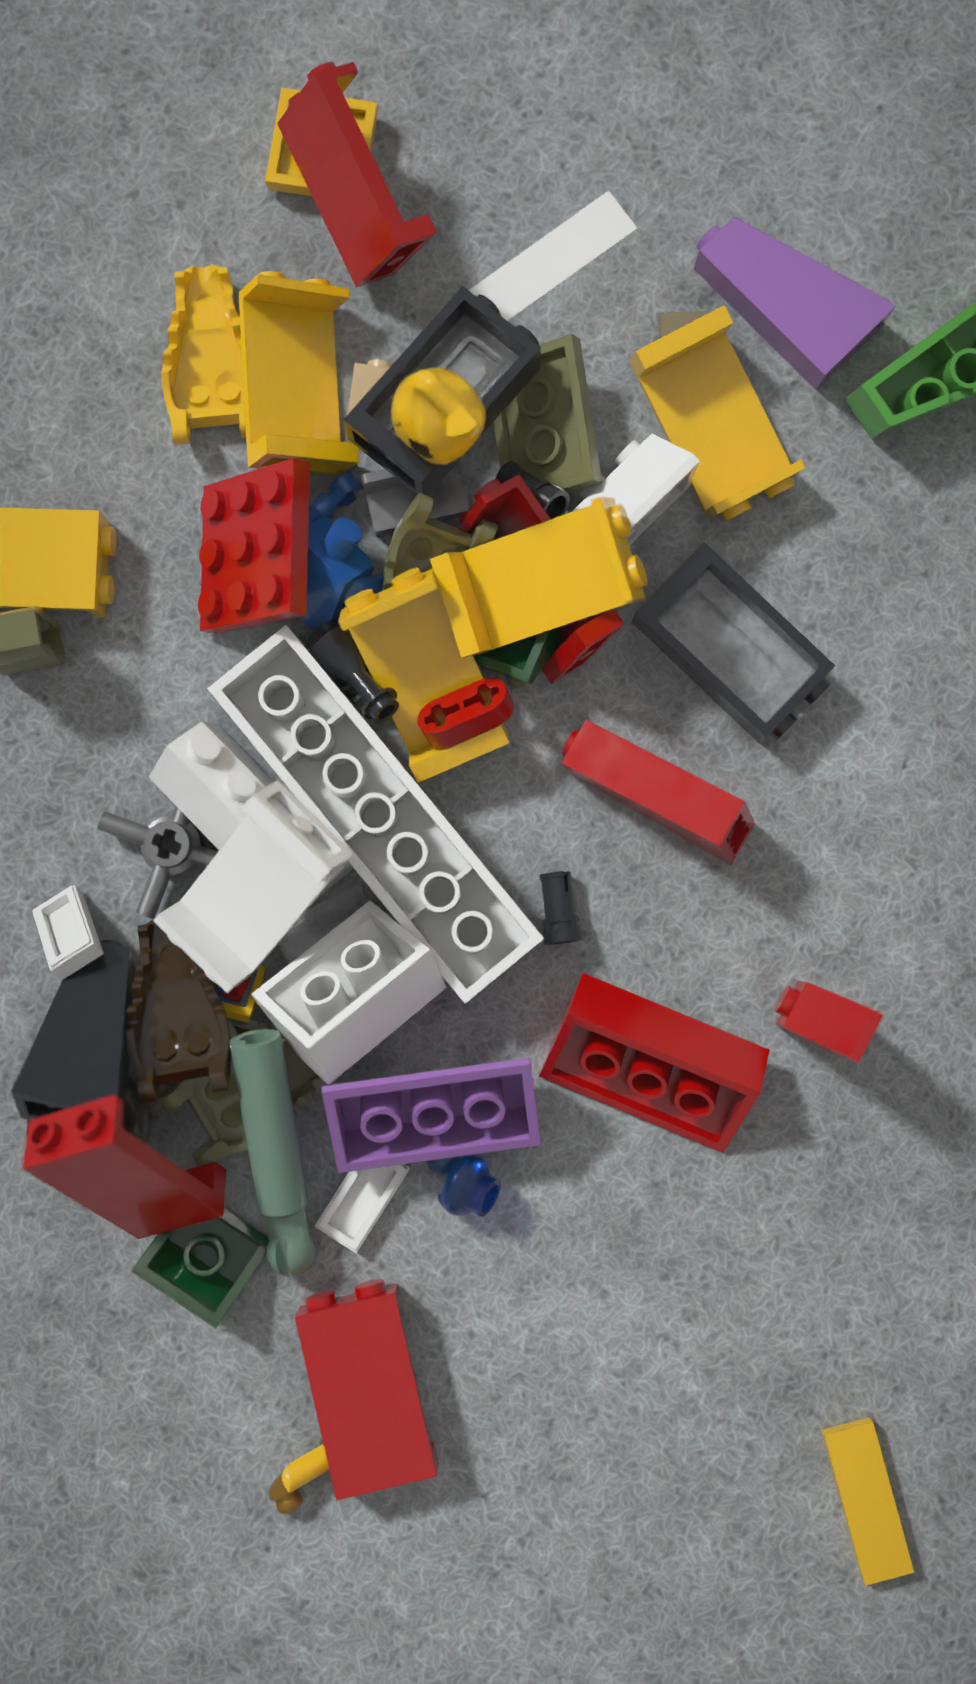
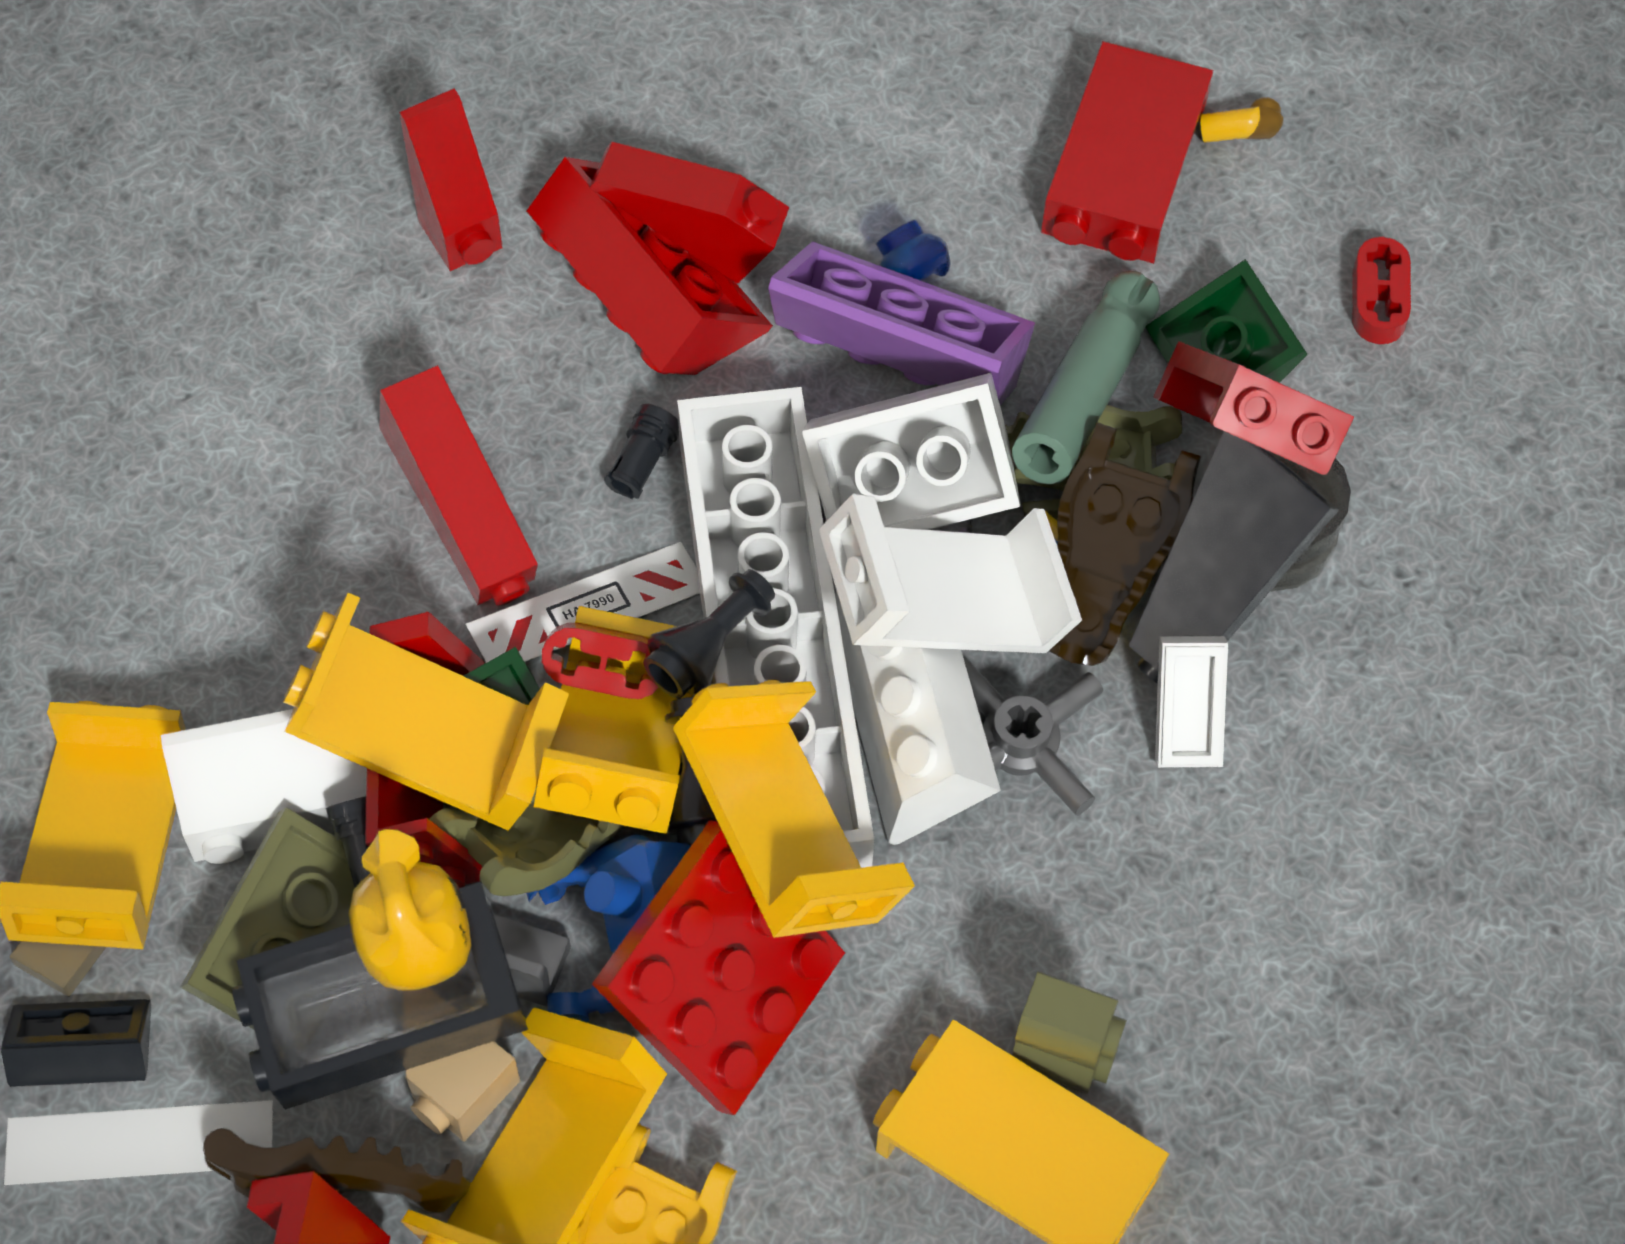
camera: 155 degrees left, 25 degrees down
(107, 1386) = (1393, 290): none -> red beam
(259, 644) = (778, 812): none -> yellow panel
(360, 1204) = (1049, 302): white tile -> none
(400, 734) = (687, 655): none -> black piece
(415, 290) = (341, 1169): none -> dark brown animal
(519, 768) = (625, 589): none -> white sticker
(630, 293) = (77, 1042): none -> black slope
(646, 1118) = (694, 206): none -> red slope
(734, 644) = (259, 583): piece -> none

